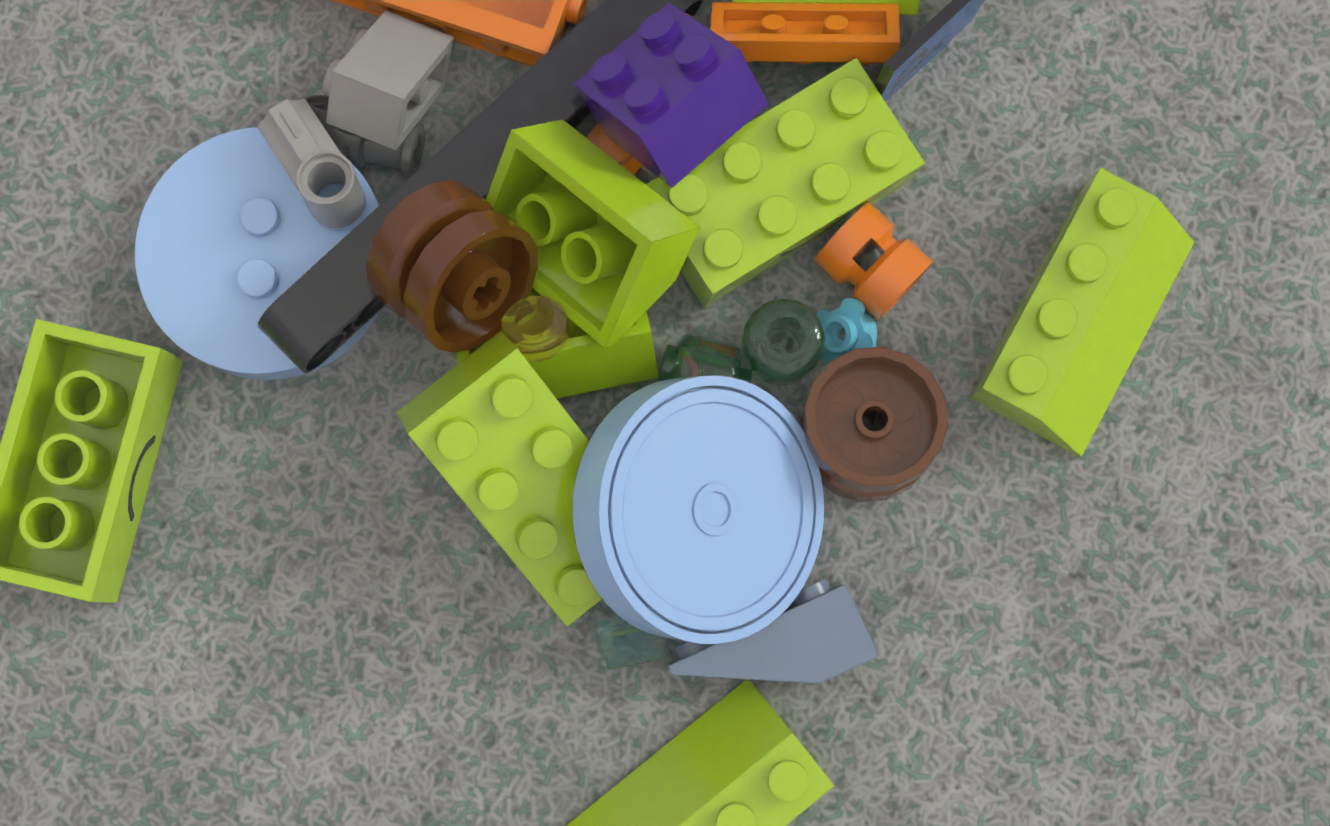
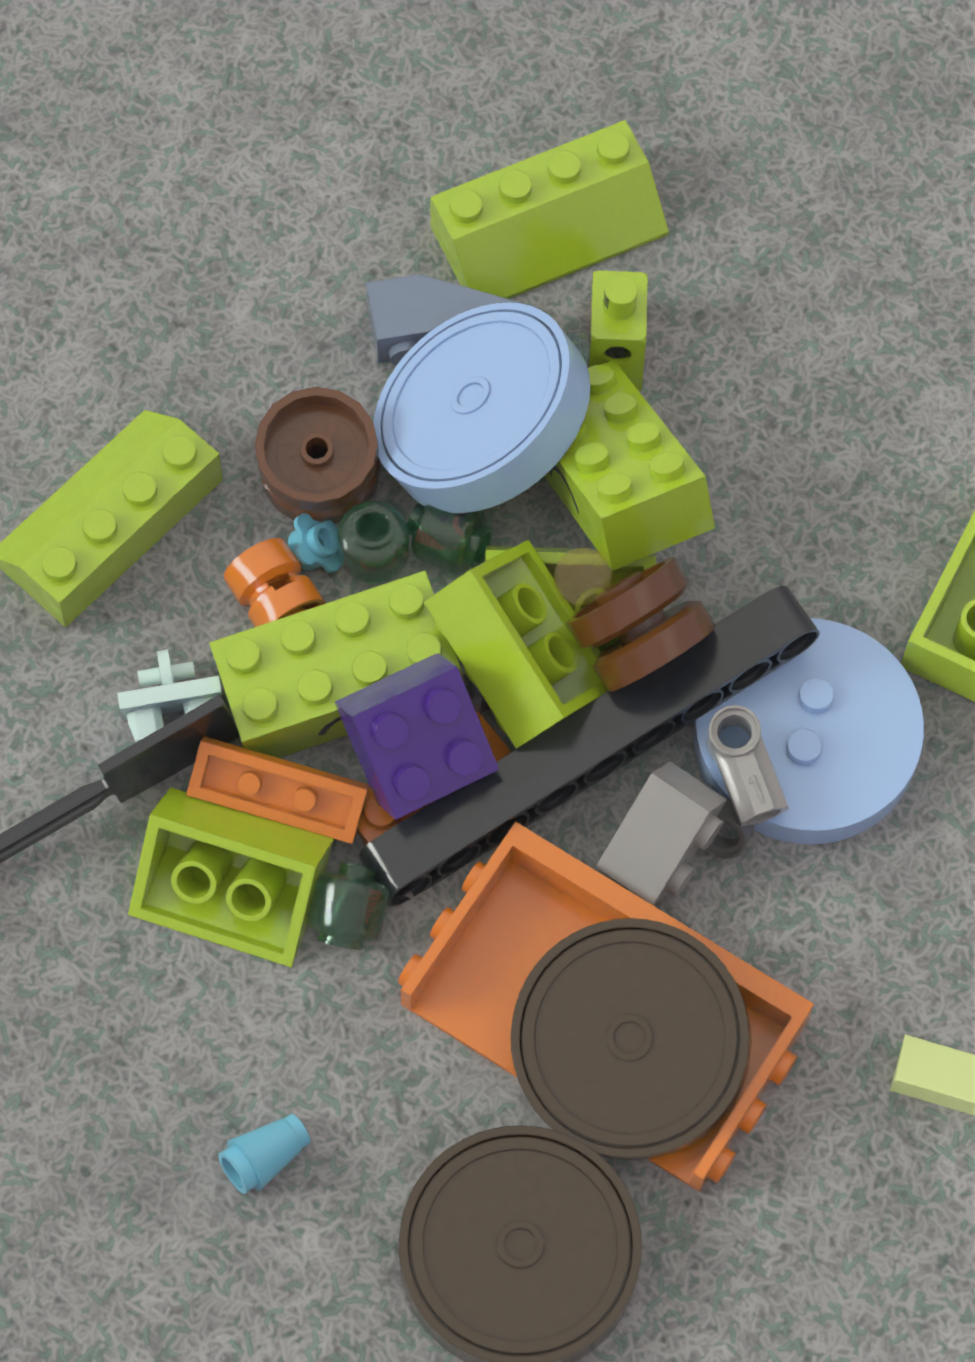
camera: 170 degrees left, 15 degrees down
(573, 681) = (619, 320): none -> lime torso
(954, 122) = (145, 706): none -> light aqua hips

